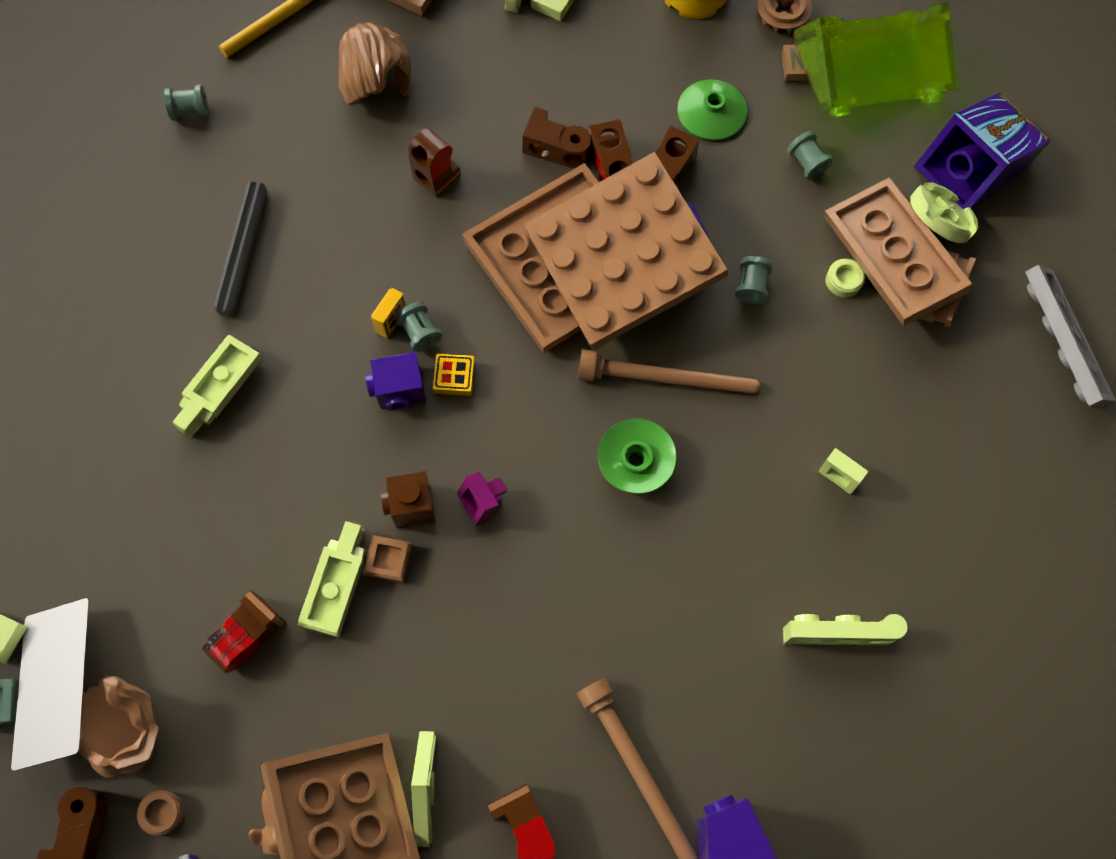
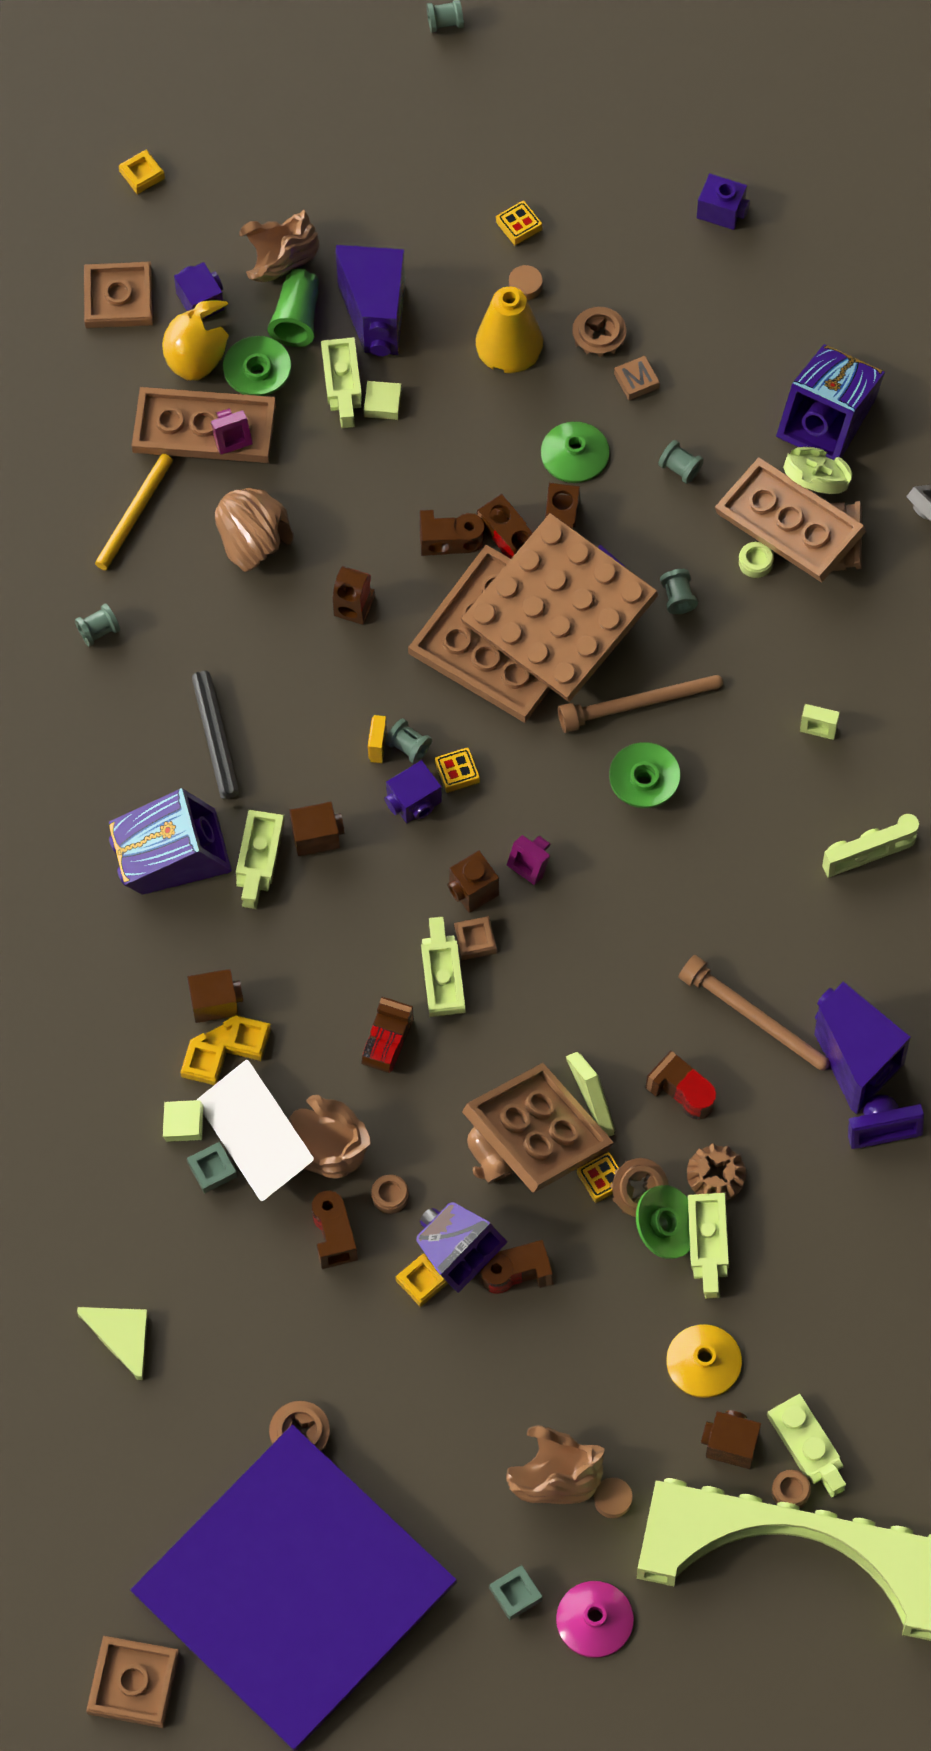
camera: 20 degrees left, 5 degrees down
(64, 568) = (236, 1036): none -> yellow tile
(89, 514) = (214, 995): none -> reddish brown brick
(135, 338) = (169, 843): none -> dark purple slope
(280, 380) = (316, 828): none -> reddish brown brick
(879, 58) = (706, 353): clear neon green windscreen -> none

